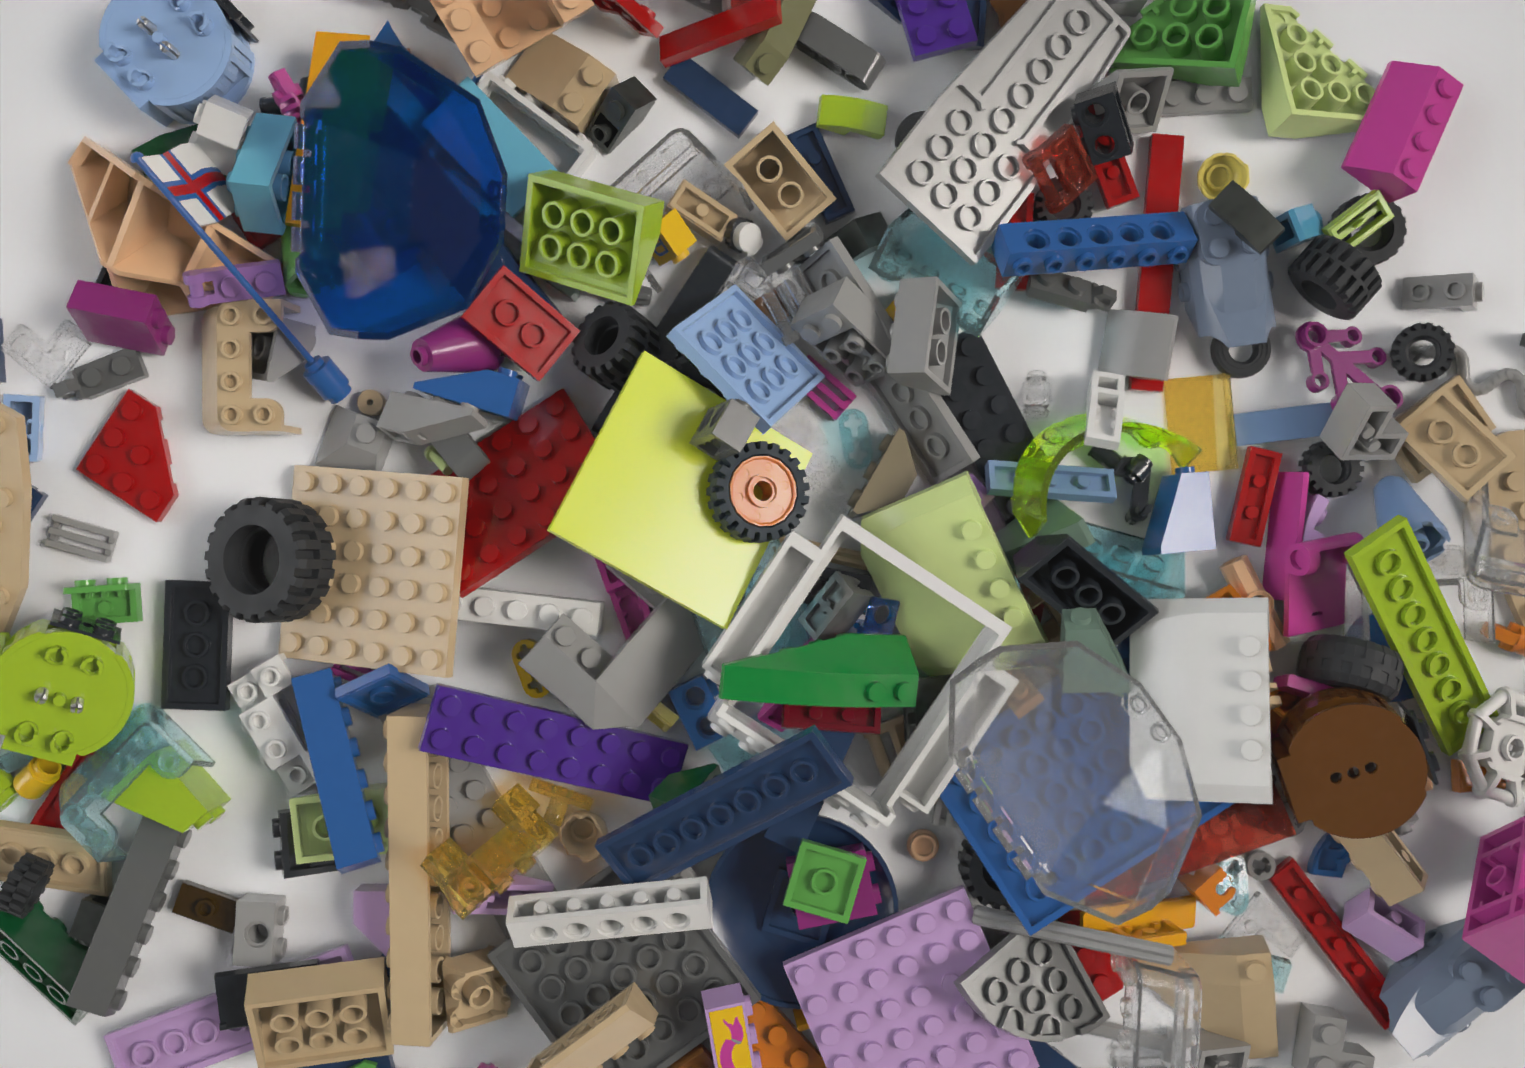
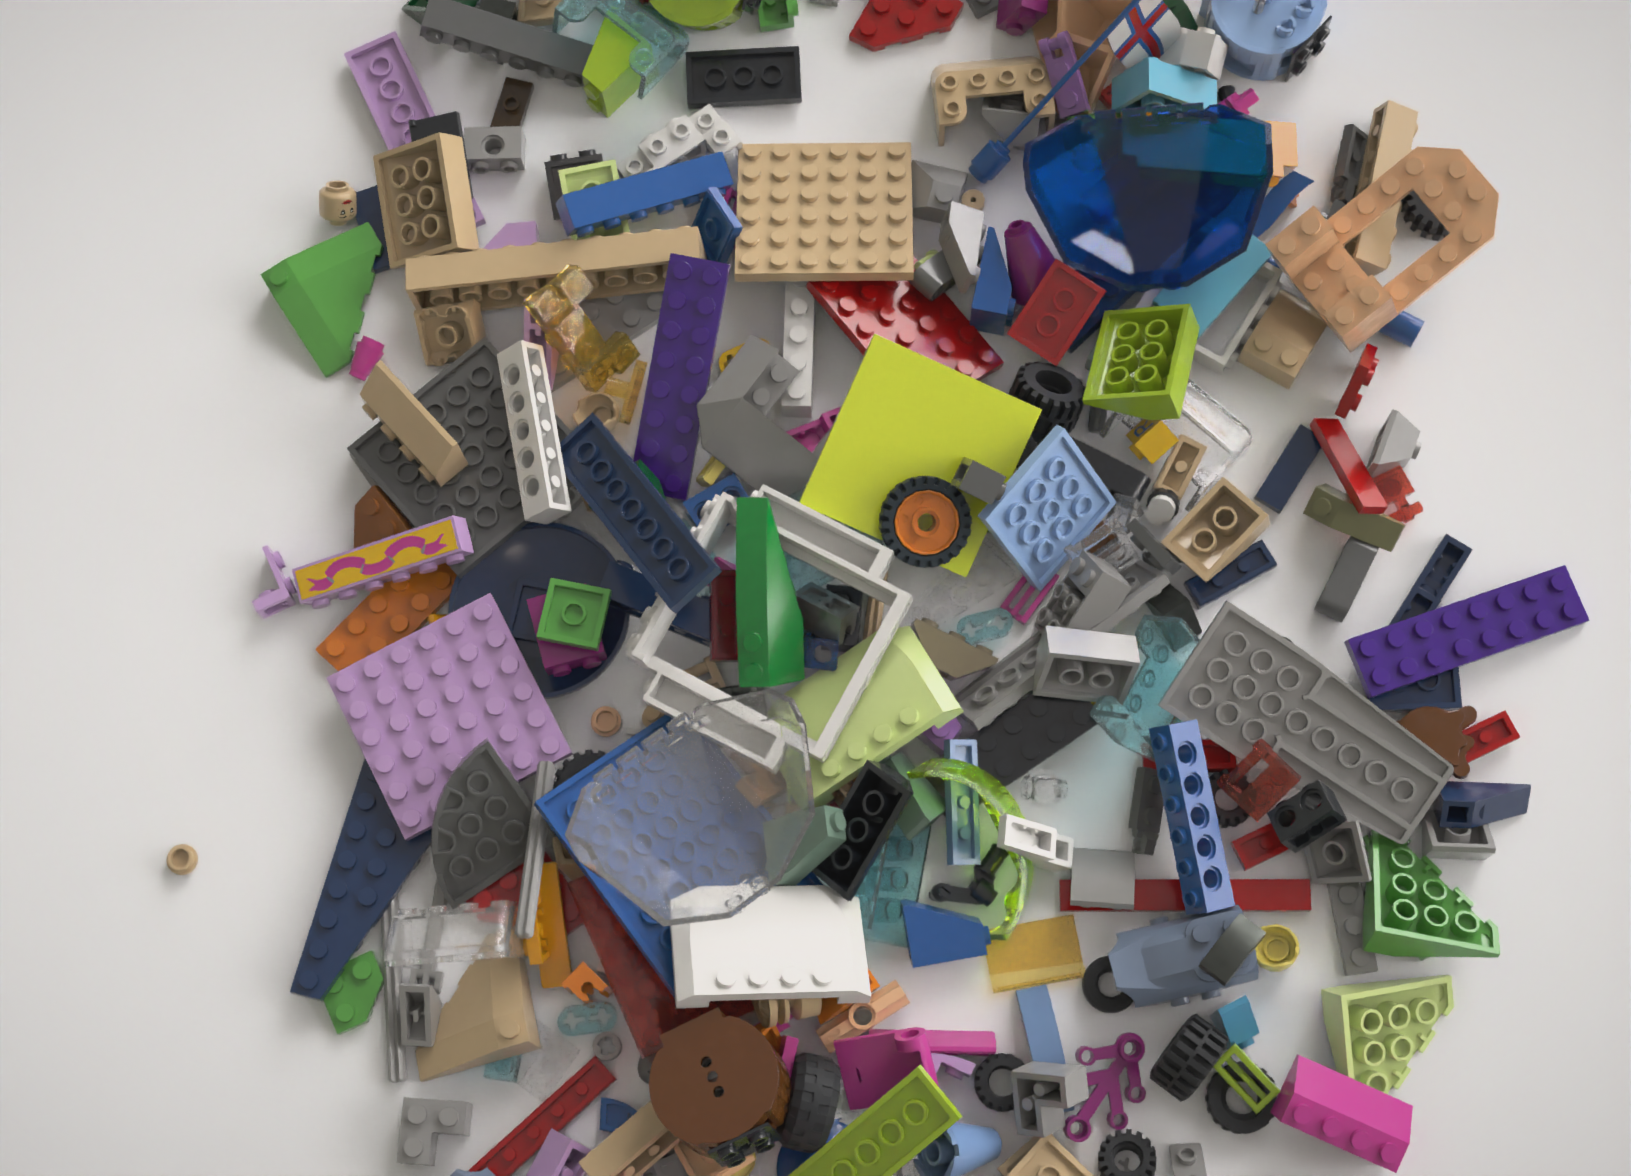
camera: 90 degrees right, 15 degrees down
(237, 560) = (824, 150): black tyre -> none
(620, 114) = (1261, 389): pearl dark grey slope -> none
(851, 114) = (1288, 595): lime slope -> none
(1254, 496) = (967, 1008): red plate -> none

